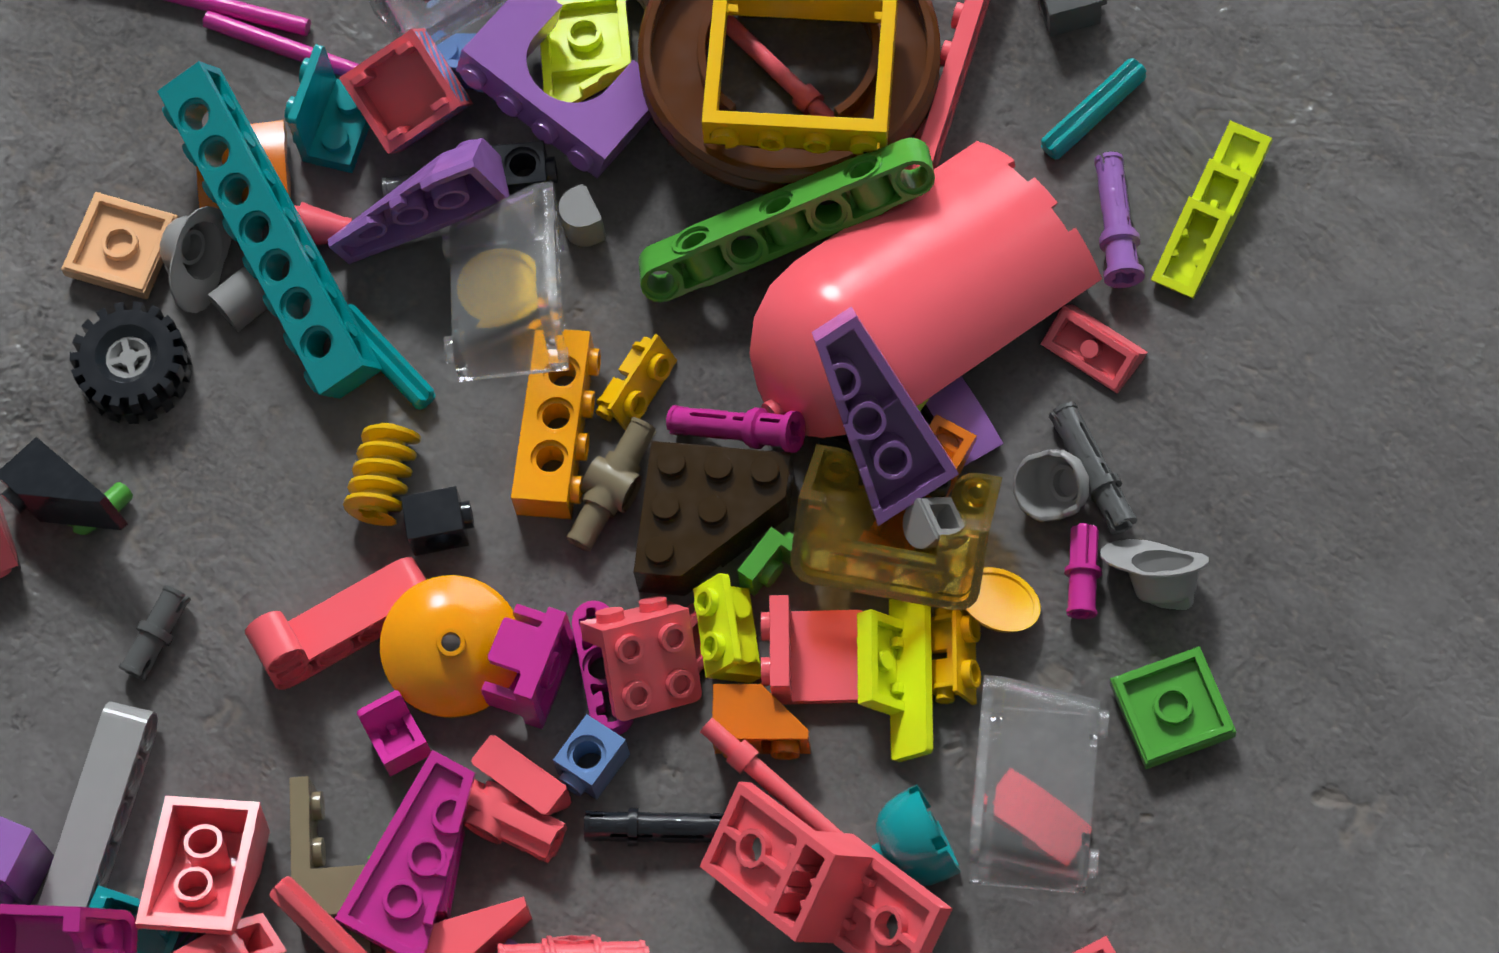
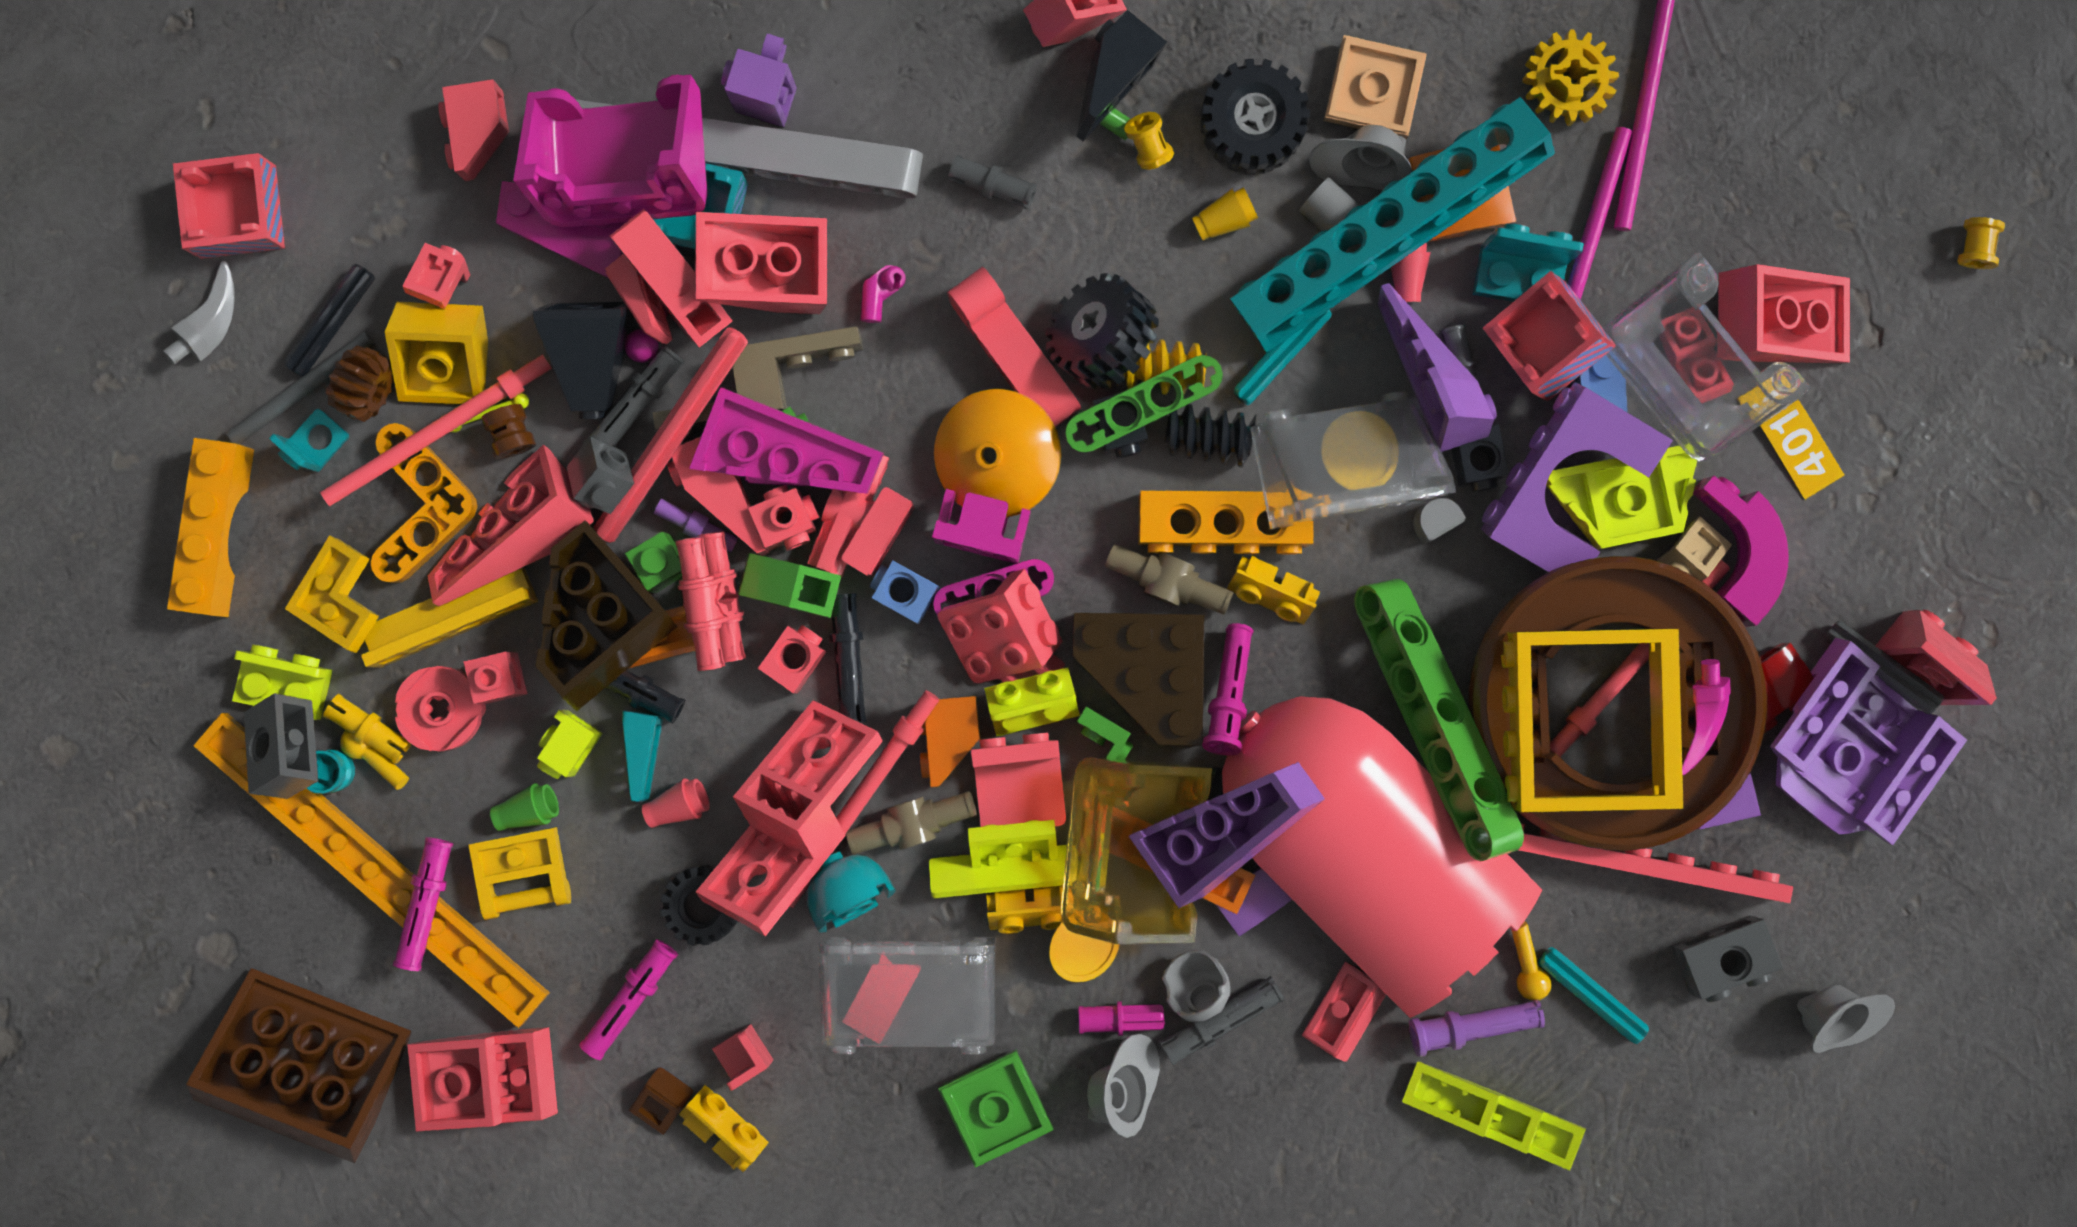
camera: 75 degrees right, 20 degrees up
(137, 466) = (1149, 140): none -> yellow bush
(142, 58) = (1584, 64): none -> yellow gear
(229, 397) = (1226, 214): none -> yellow cone
(250, 763) = (877, 289): none -> dark pink arm
(357, 518) = (1102, 331): none -> black wheel
(393, 732) = (912, 413): dark pink bracket -> none
(414, 482) = (1141, 398): none -> bright green beam
(458, 429) = (1209, 434): none -> black piece
(490, 873) = (769, 513): none -> coral brick
(567, 872) = (789, 585): none -> bright green slope
(662, 900) = (776, 667): none -> coral brick
(848, 770) = (911, 823): none -> dark tan pin
(930, 519) = (1136, 885): light grey brick -> none
(1075, 165) = (1532, 981): none -> yellow bar

